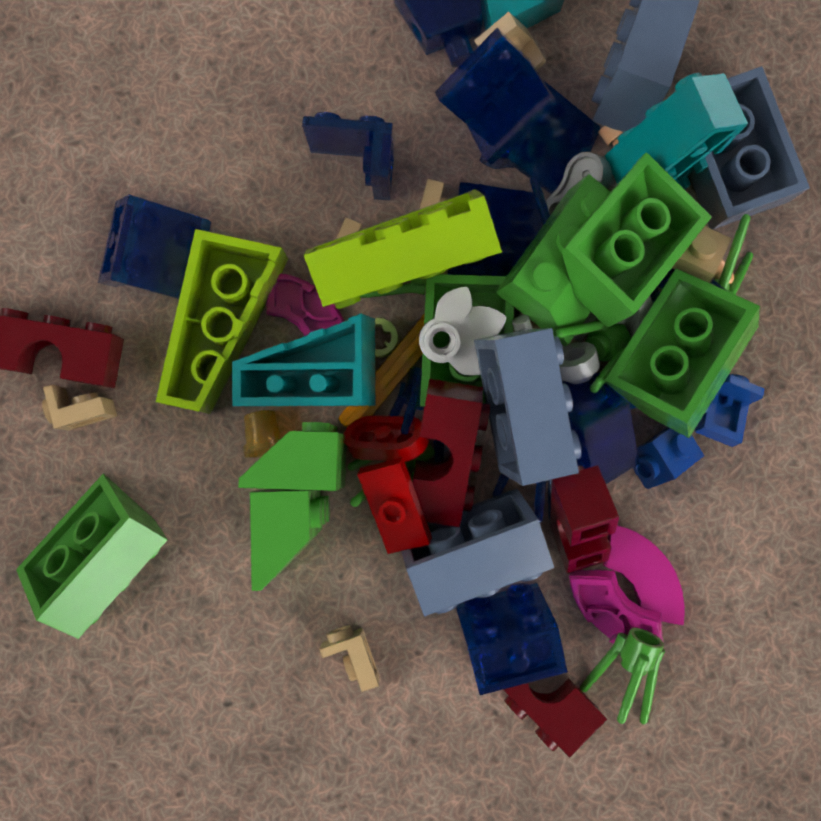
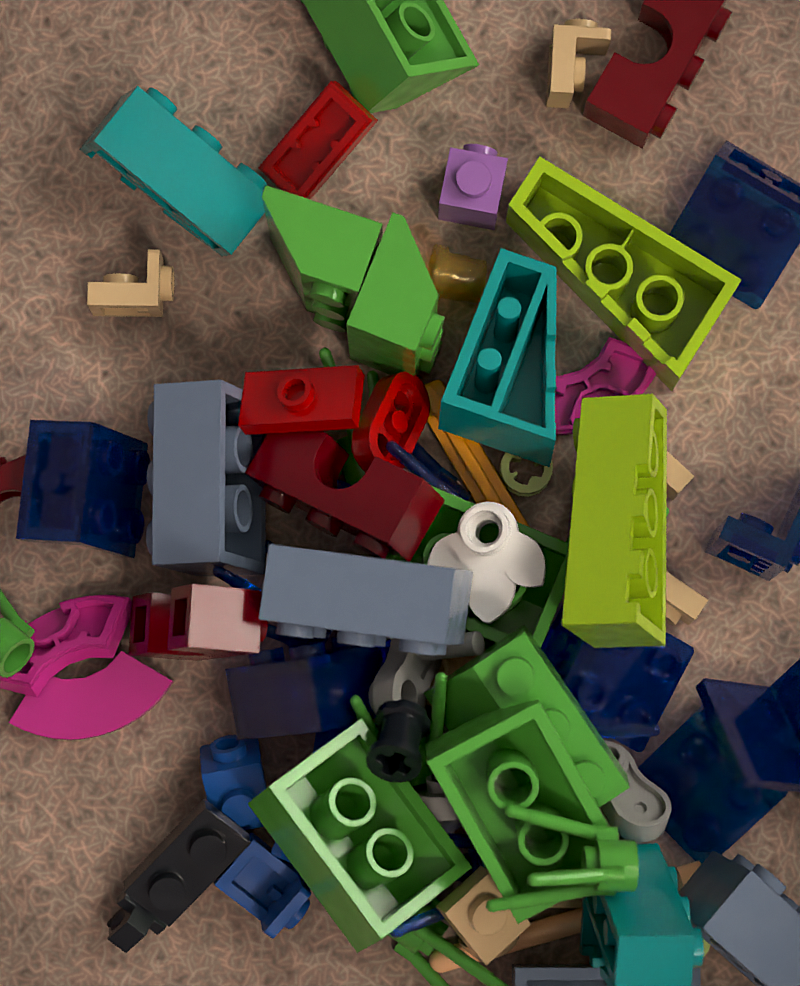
camera: 115 degrees right, 5 degrees down
(192, 443) = (472, 186): none -> medium lavender brick
(200, 565) = (318, 142): none -> red plate
(254, 657) = (179, 169): none -> teal wedge
(615, 346) = (396, 750): none -> black bush
(661, 162) = (604, 870): none -> bright green plant
(744, 471) = (176, 874): none -> black hinge

